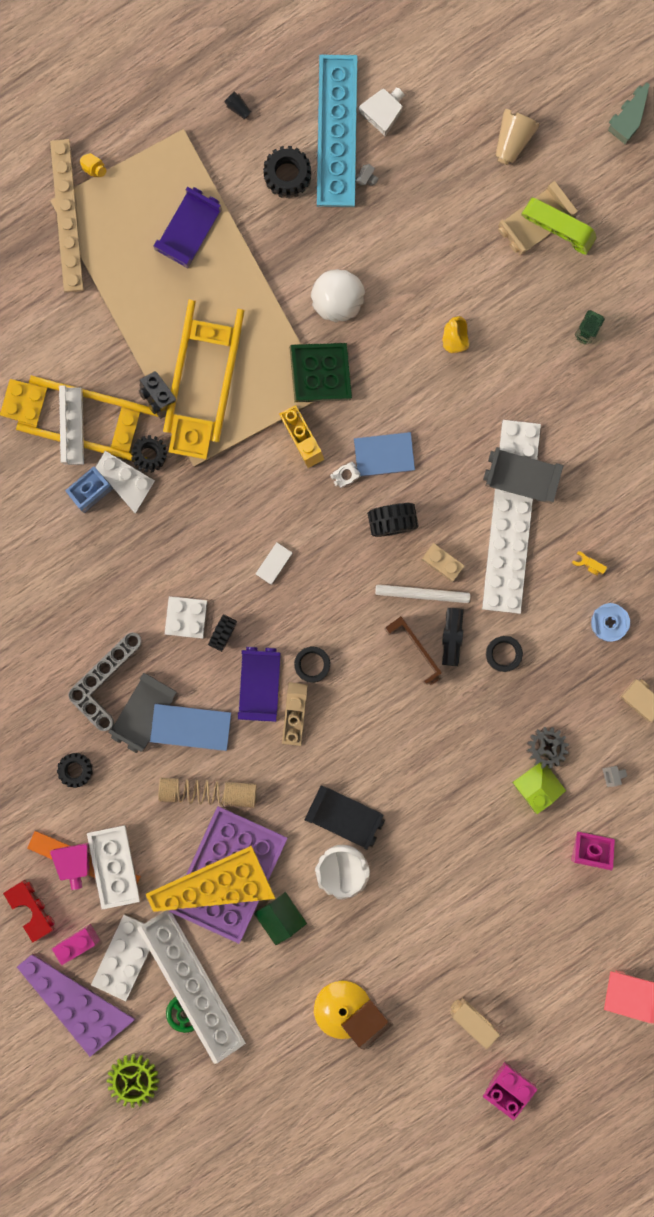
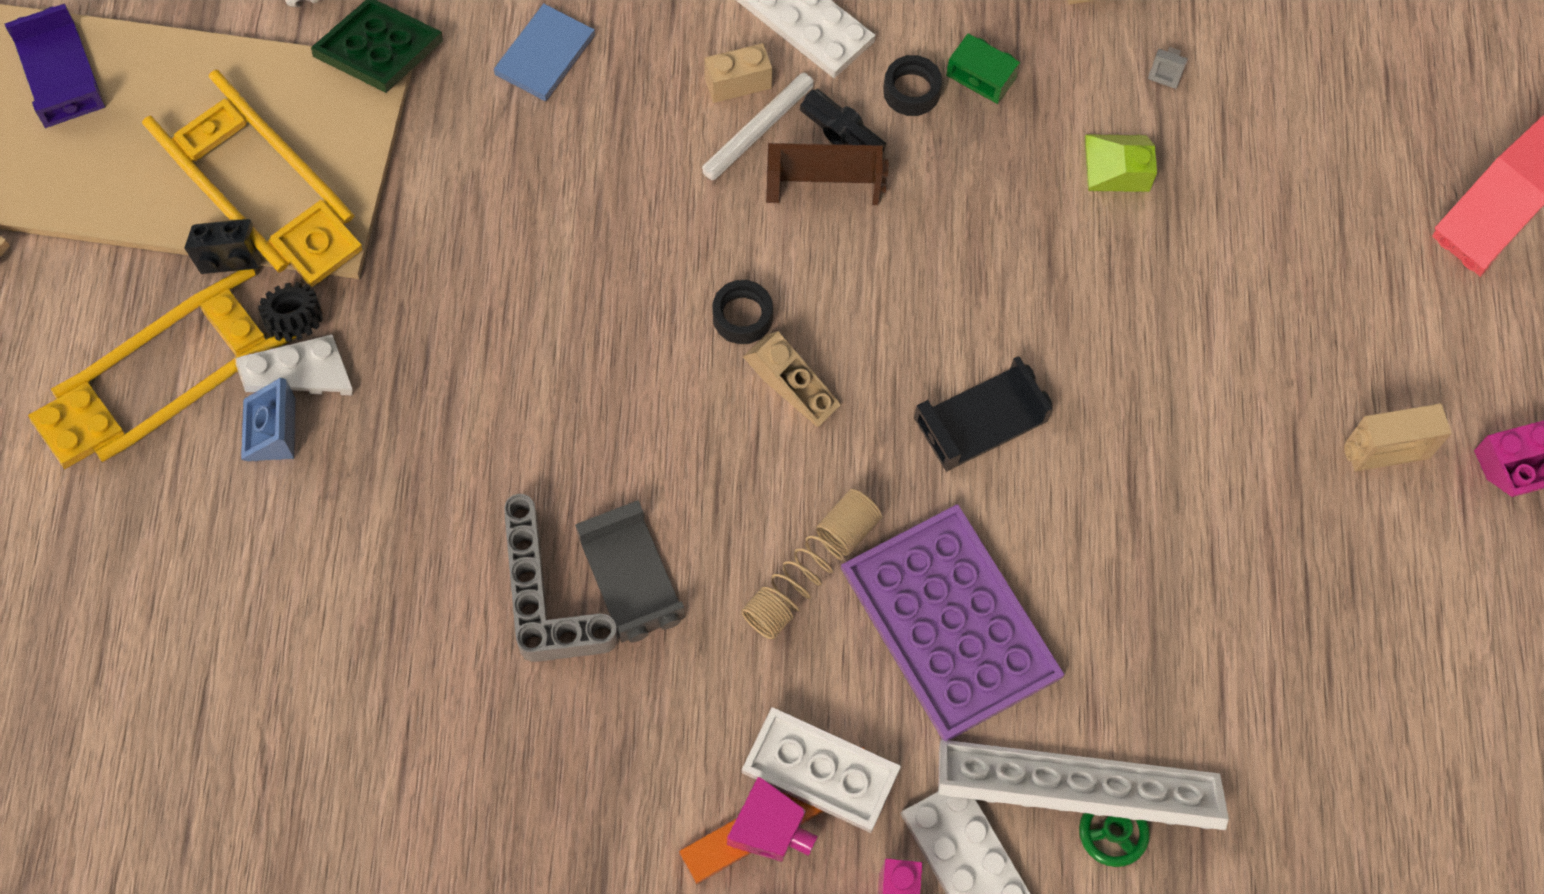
camera: 60 degrees left, 20 degrees down
(63, 770) = (636, 747): black tyre -> none
(71, 425) = (164, 378): white fence -> none
(185, 617) = (547, 426): white plate -> none
(190, 727) = (701, 525): medium blue tile -> none
(222, 632) = (607, 385): black tyre -> none
(223, 882) = (958, 626): yellow wing -> none
(259, 684) = (715, 397): dark purple panel -> none
(273, 563) = (569, 269): white tile -> none
(280, 918) = (1067, 599): dark green slope -> none
(302, 436) = (442, 121): yellow slope -> none
(332, 999) = (1245, 621): yellow dish -> none
(337, 475) = (526, 94): white piece -> none
(342, 871) = (1060, 457): white piece -> none
(366, 1025) = (1304, 581): reddish brown slope -> none
(392, 519) = (634, 81): black tyre -> none
(541, 682) = (982, 68): none -> green brick
(544, 741) = (1074, 114): dark grey gear -> none
(593, 851) = (1254, 153): dark pink slope -> none

